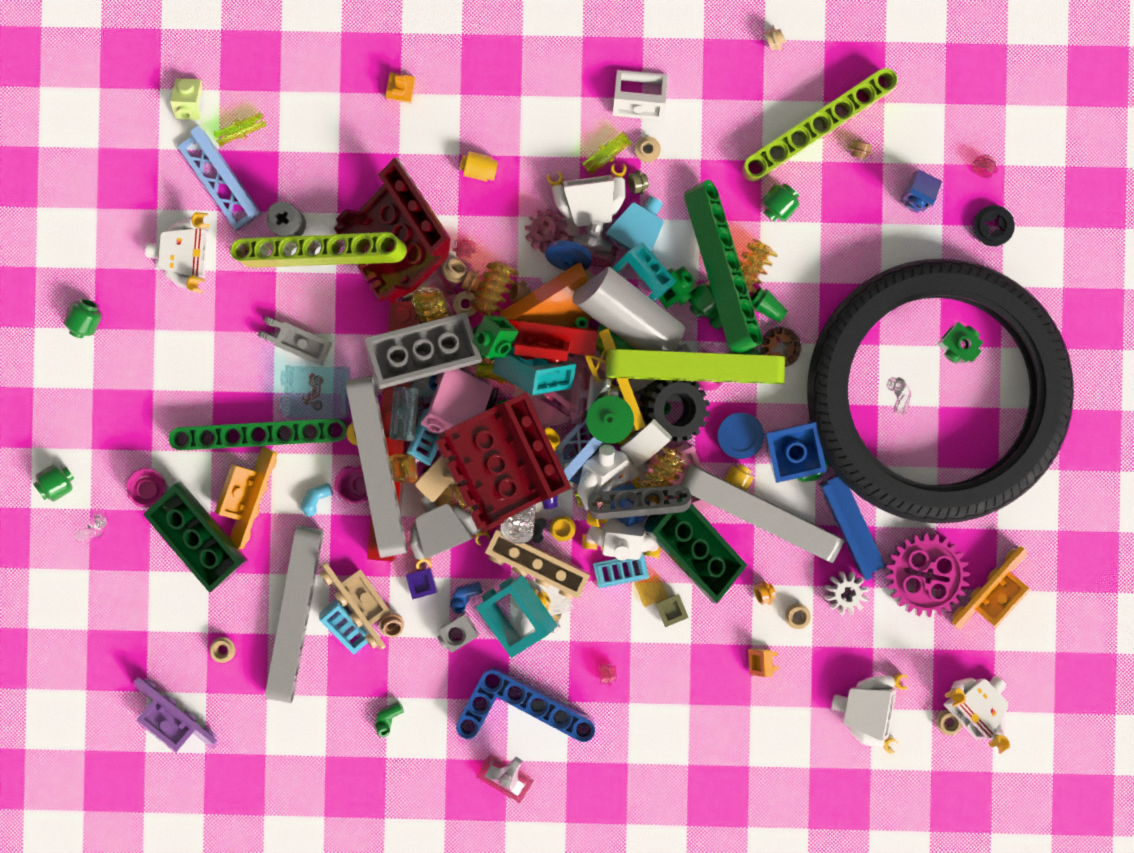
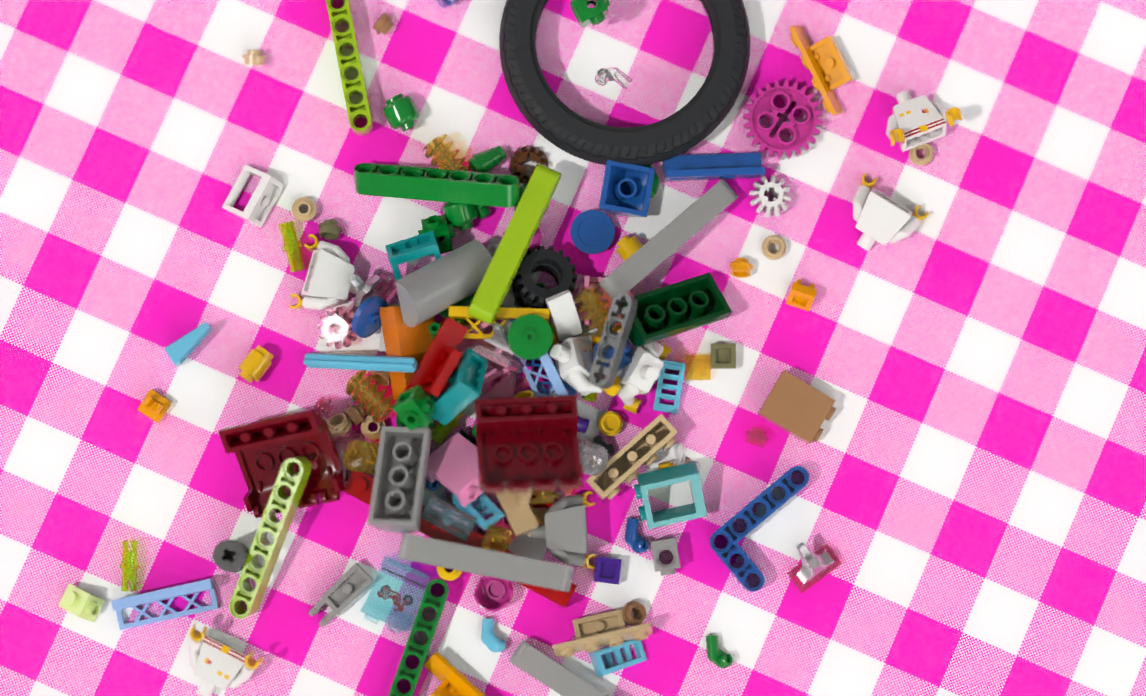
camera: 80 degrees left, 5 degrees down
(467, 91) = (183, 347): none -> medium azure slope
(520, 266) = (360, 362): none -> medium azure axle
(637, 225) = (368, 245): medium azure torso -> none
(651, 702) = (797, 408): none -> medium nougat brick

